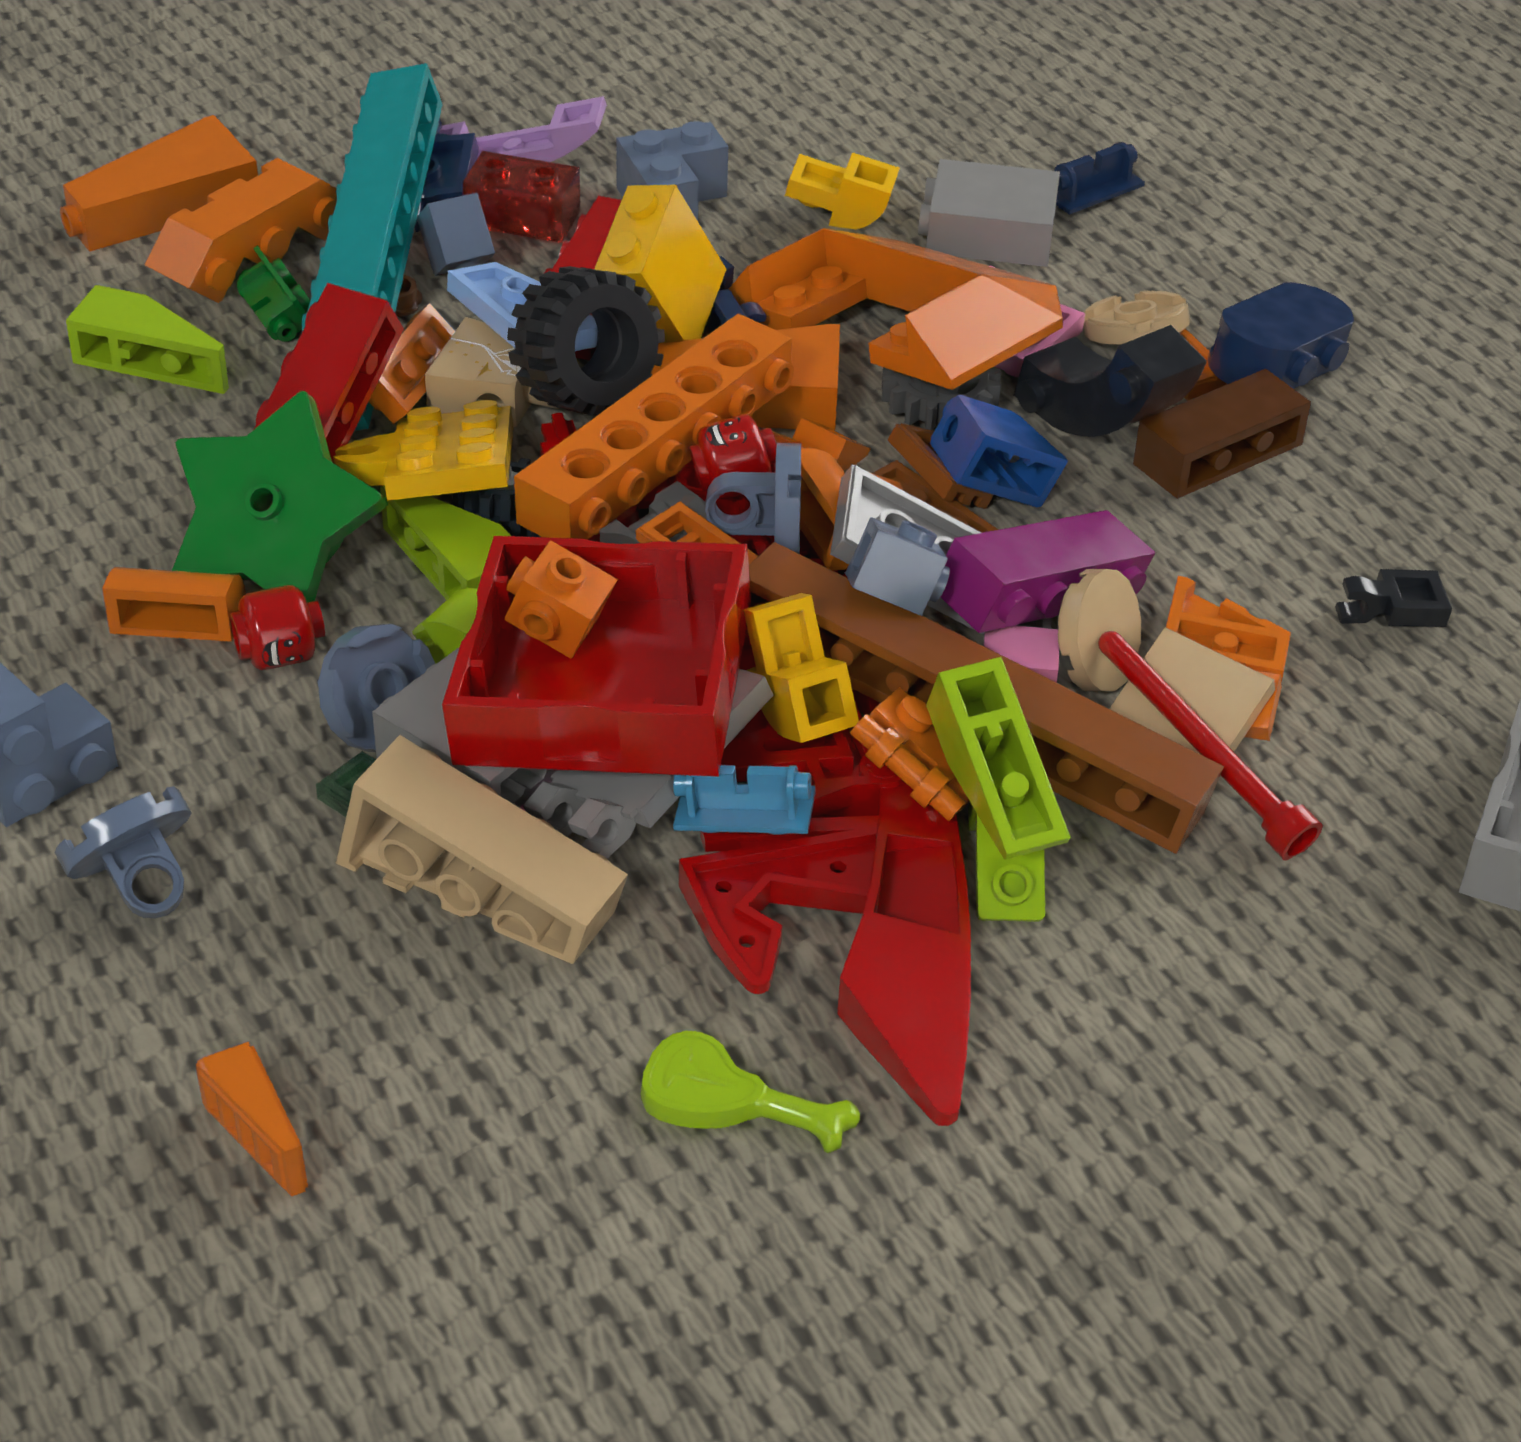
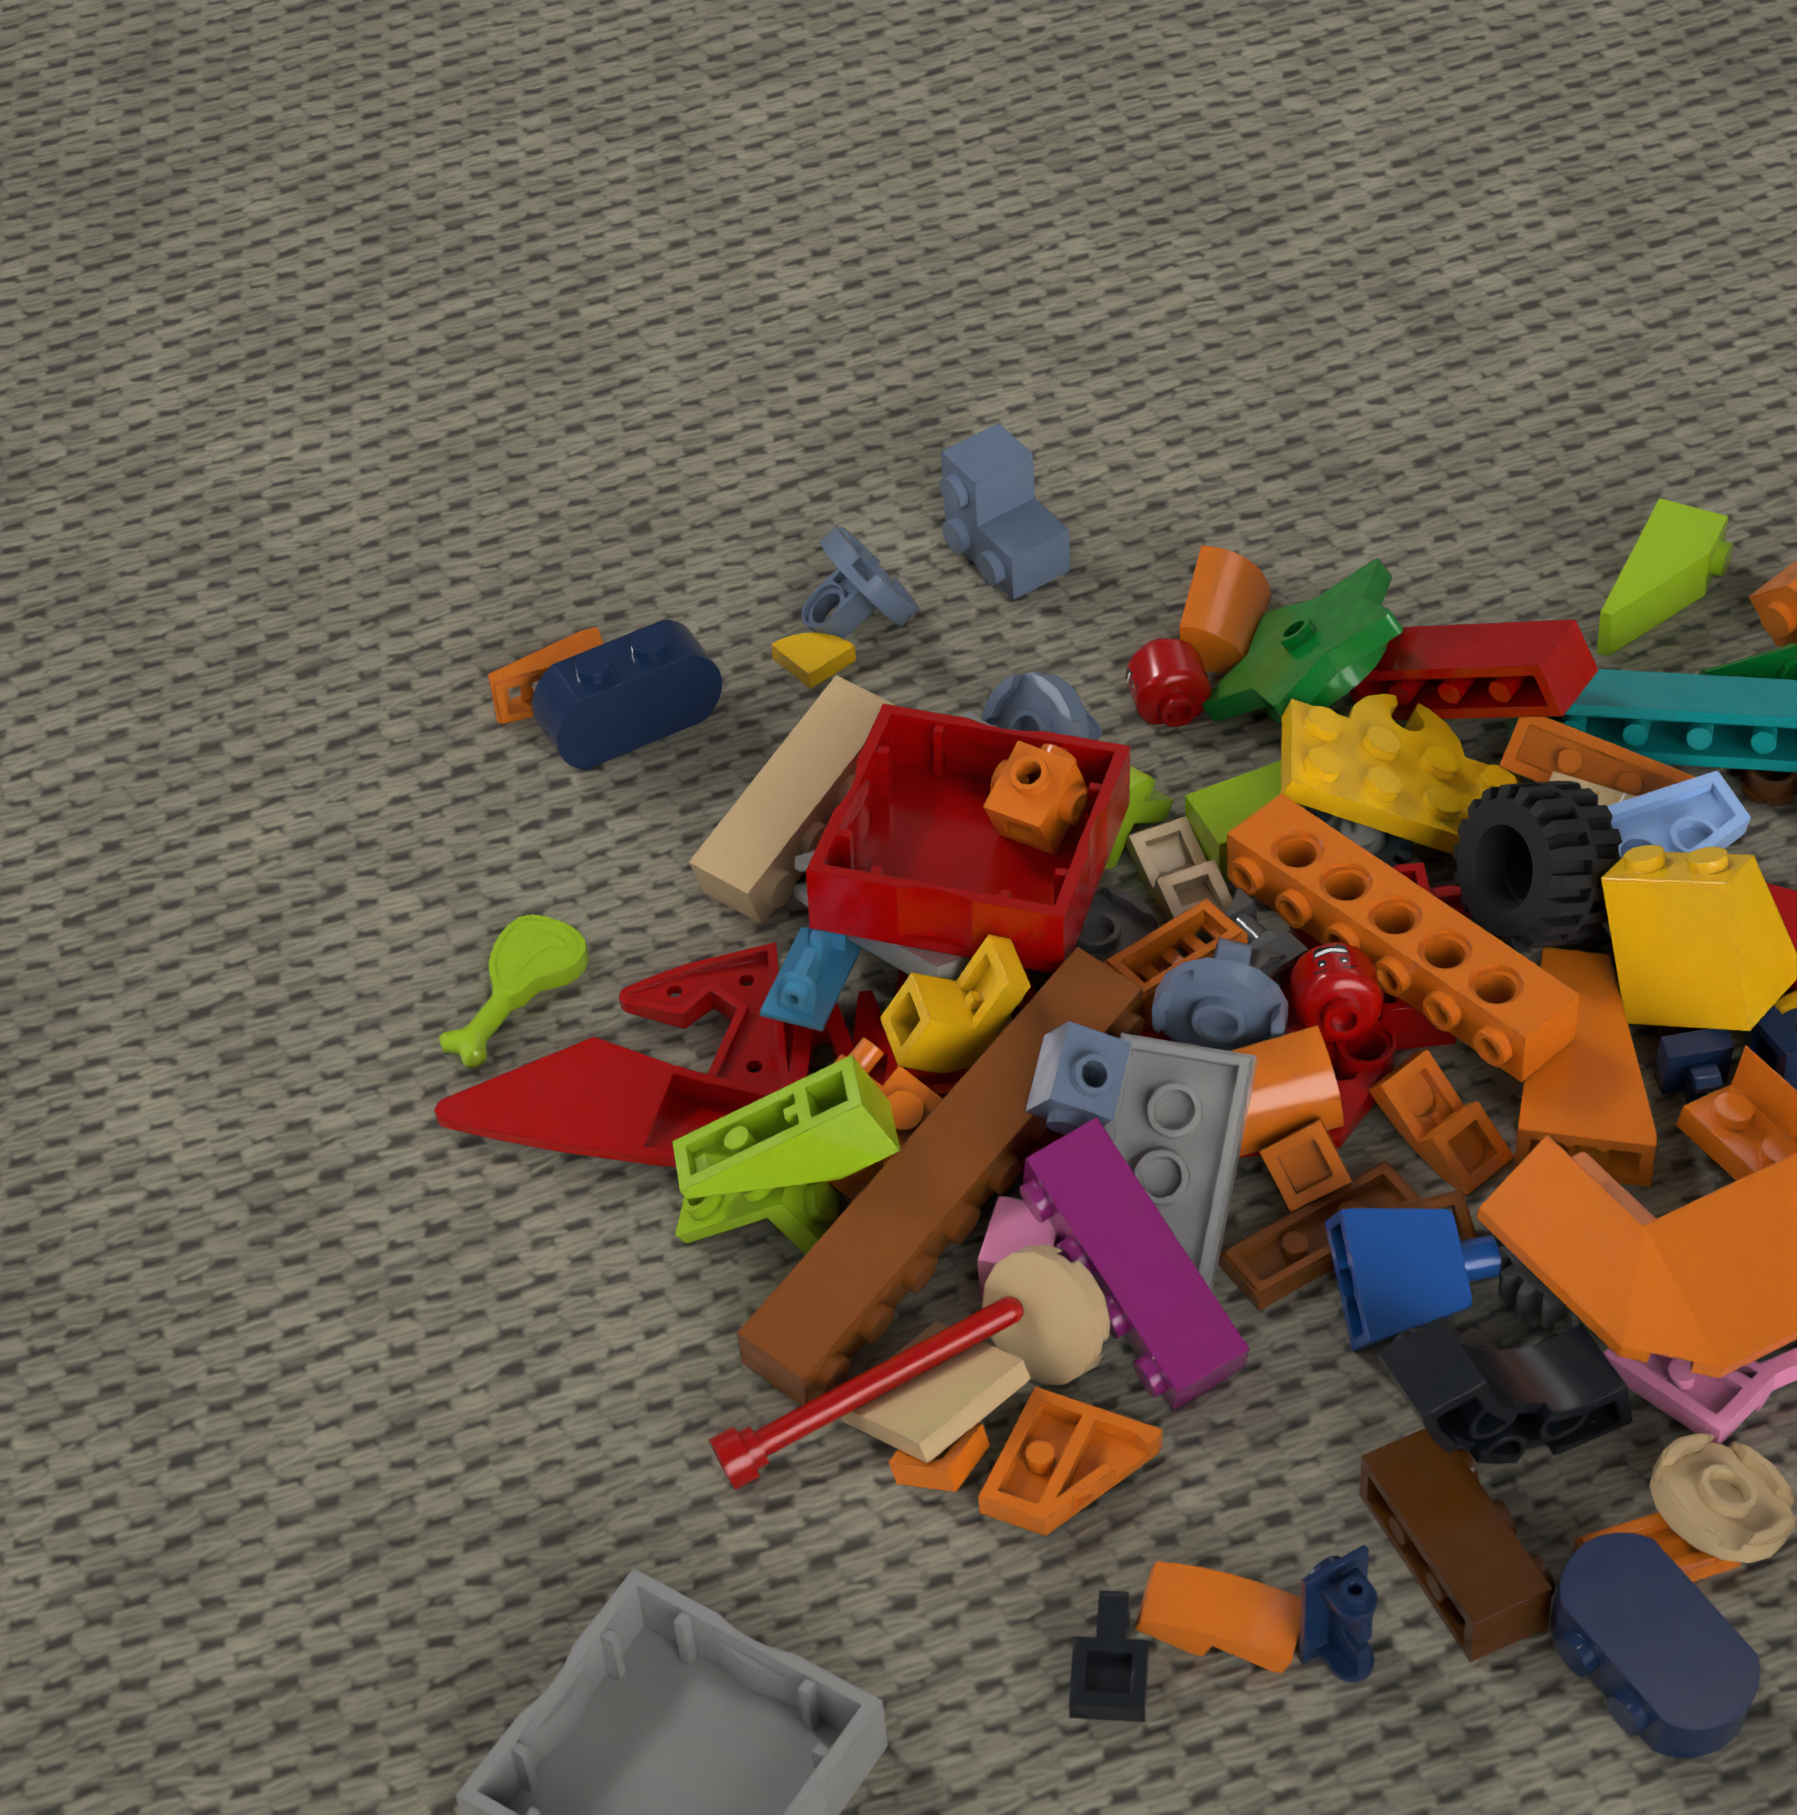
camera: 105 degrees right, 5 degrees up
(213, 906) = (813, 656): none -> yellow tile
(310, 1026) = (626, 693): none -> dark blue brick
(1327, 546) = (1214, 1608): none -> orange slope
(1329, 458) = (1339, 1615): none -> dark blue hinge

